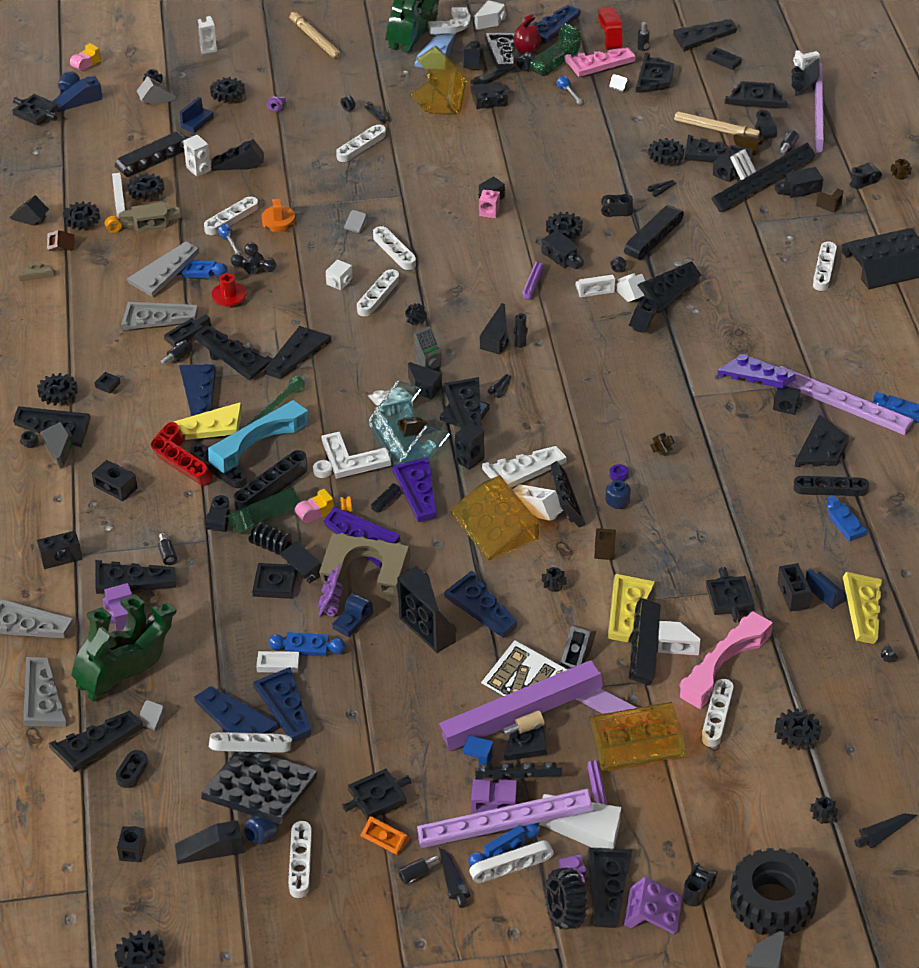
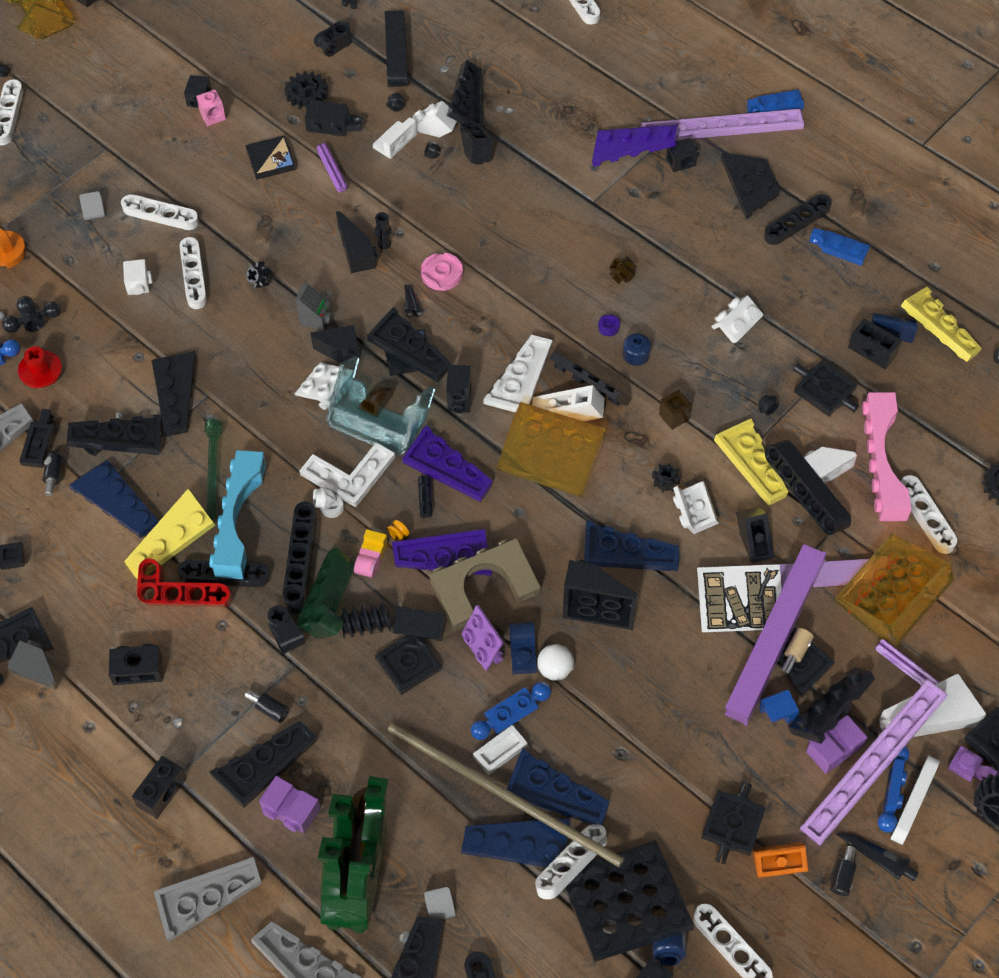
camera: 40 degrees left, 15 degrees up
(251, 683) = (507, 795): none -> dark tan piece
(317, 457) = (323, 498): none -> white plate
(365, 636) = (555, 662): none -> white hair
(499, 254) = (270, 157): none -> tile
(540, 379) = (441, 271): none -> bright pink tile
(553, 607) = (695, 507): none -> white bracket
(610, 304) = (430, 150): none -> black hinge
(676, 581) = (768, 404): none -> black plate
(714, 519) = (737, 318): none -> white bracket

